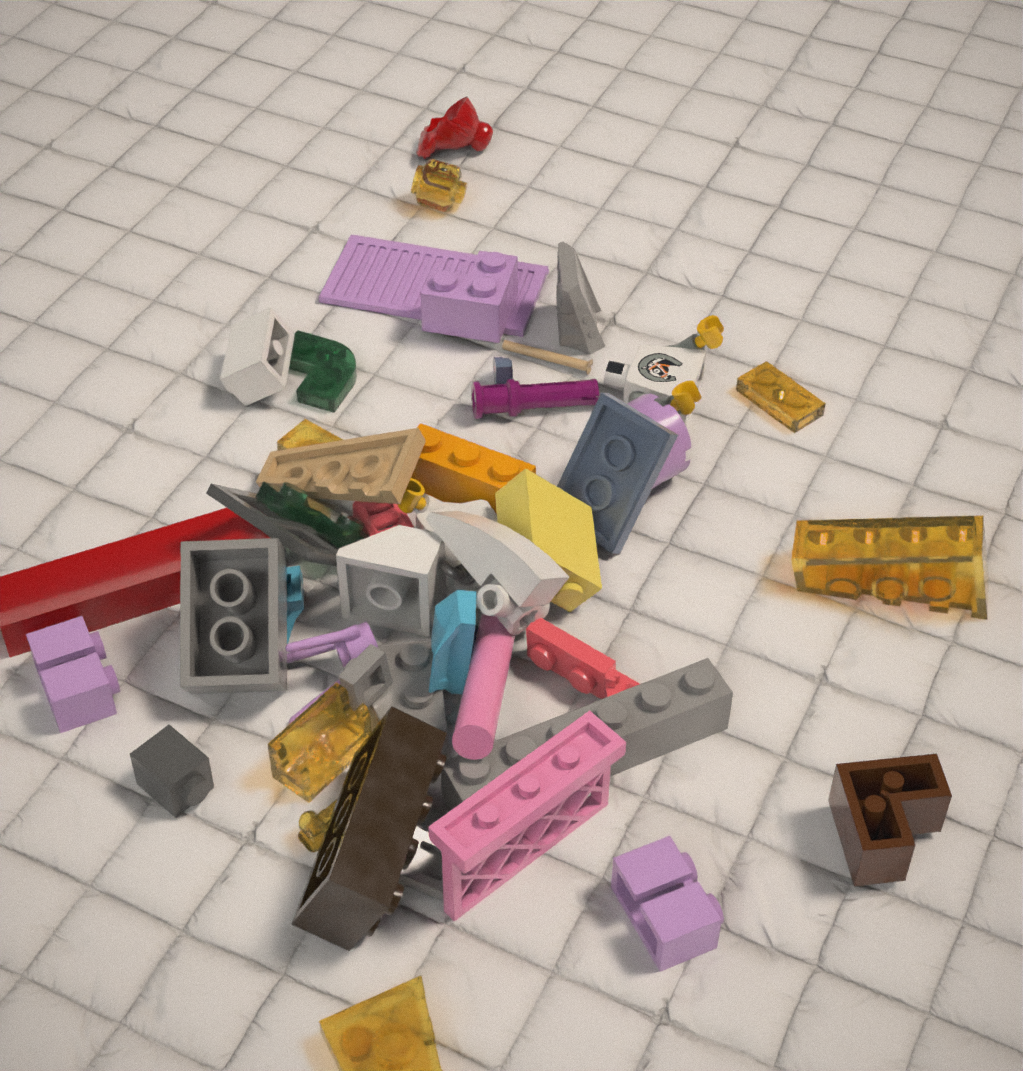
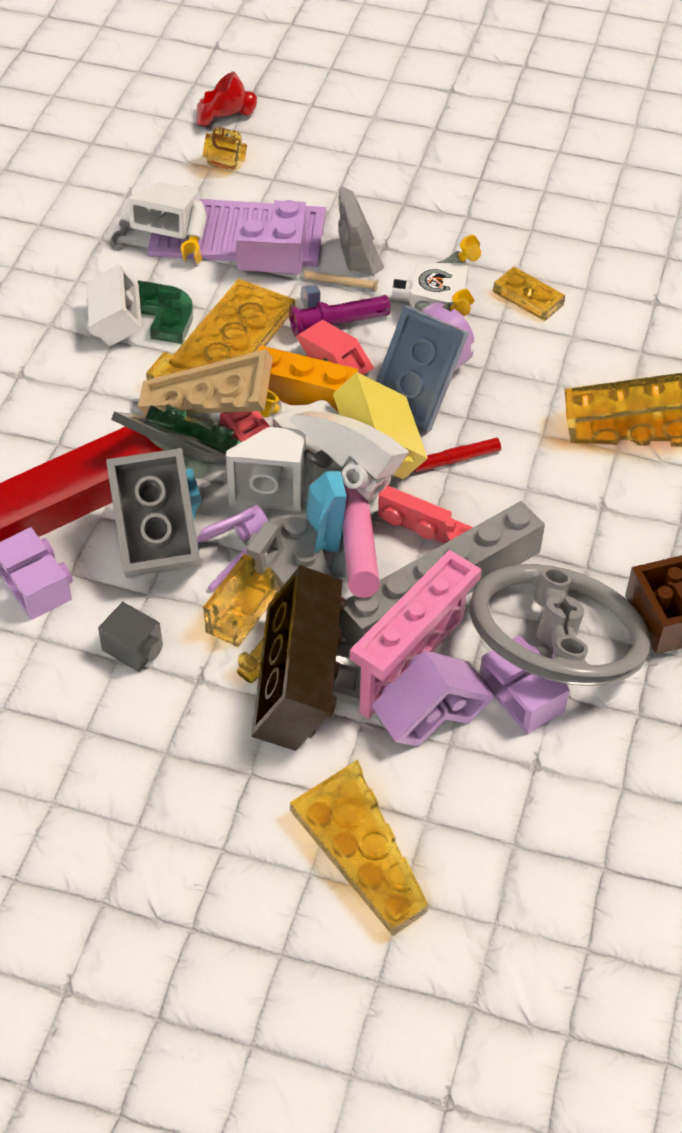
camera: 10 degrees left, 5 degrees up
(349, 252) = (166, 211): none -> white torso
(410, 391) = (237, 324): none -> clear yellow plate
(518, 435) = (337, 346): none -> coral slope
(536, 898) = (428, 694): none -> lavender brick
(647, 588) = (460, 454): none -> red piece
(727, 831) = (560, 625): none -> light grey piece

